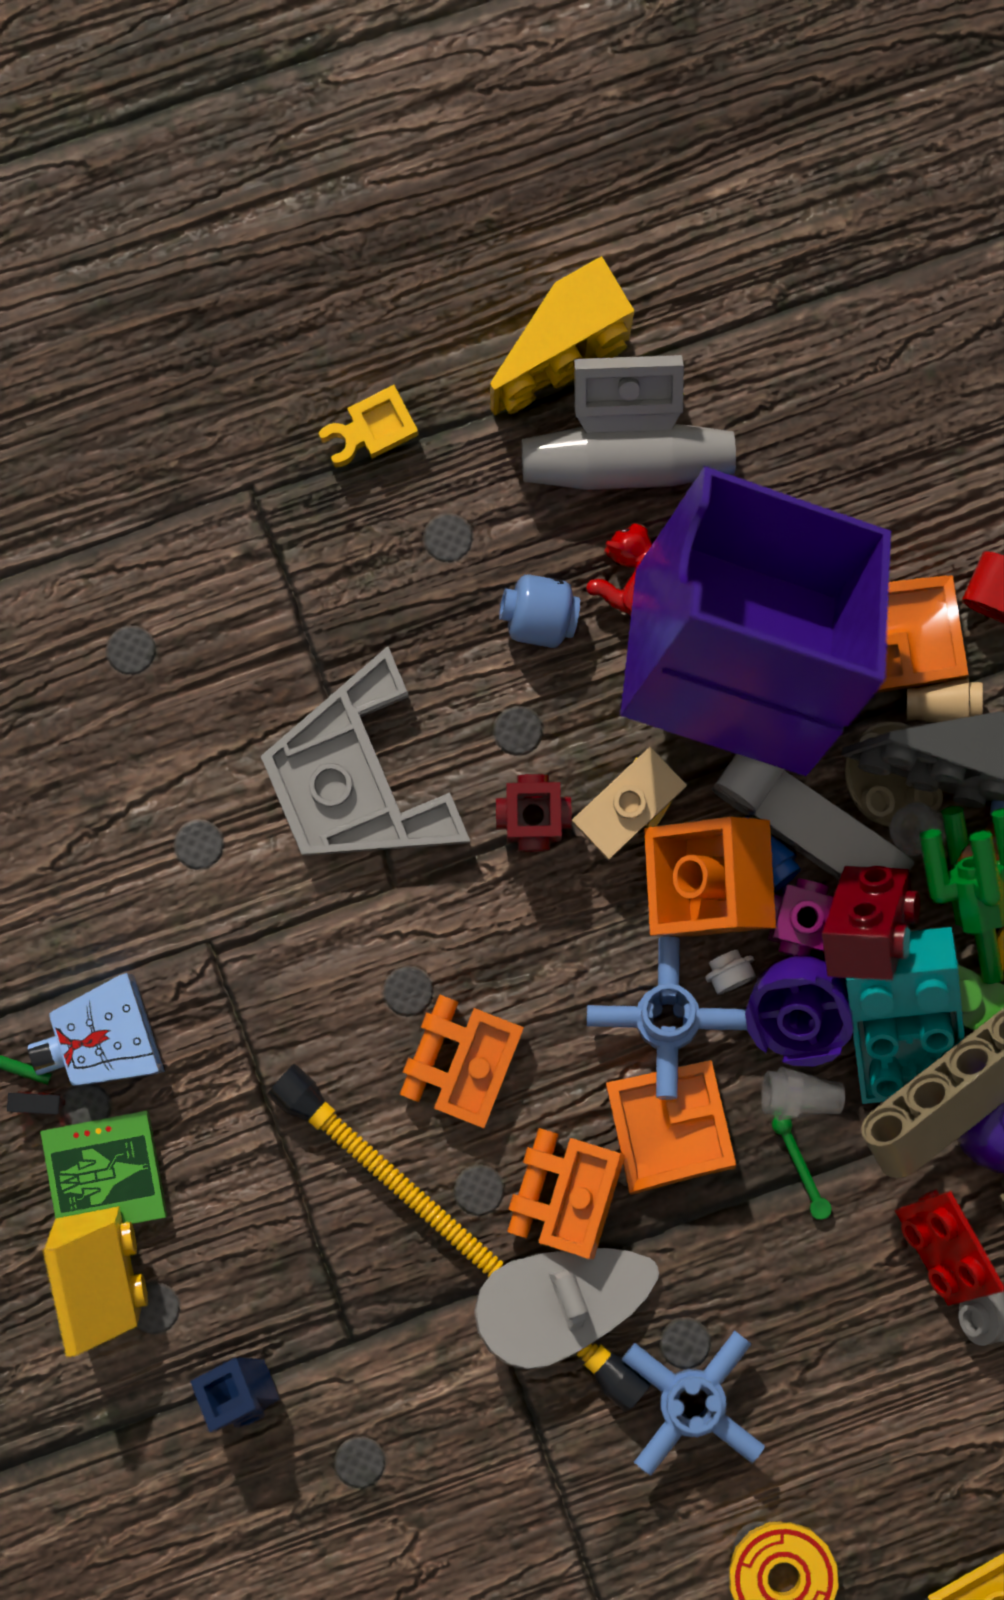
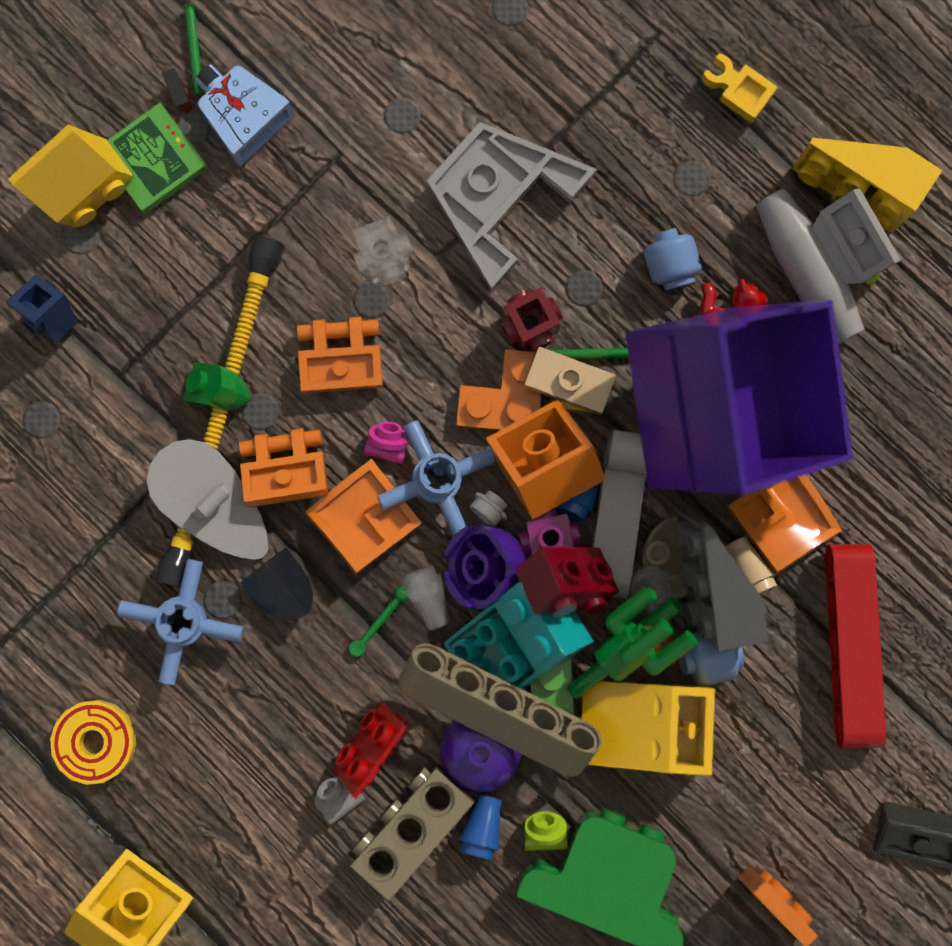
camera: 65 degrees right, 0 degrees up
(344, 946) = (381, 239): none -> clear brick
(428, 1230) = (215, 387): none -> green plate
(593, 1054) = (387, 442): none -> dark pink plate
(602, 763) = (594, 353): none -> green piece
(618, 894) = (498, 408): none -> orange plate
(707, 1264) = (281, 587): none -> black brick

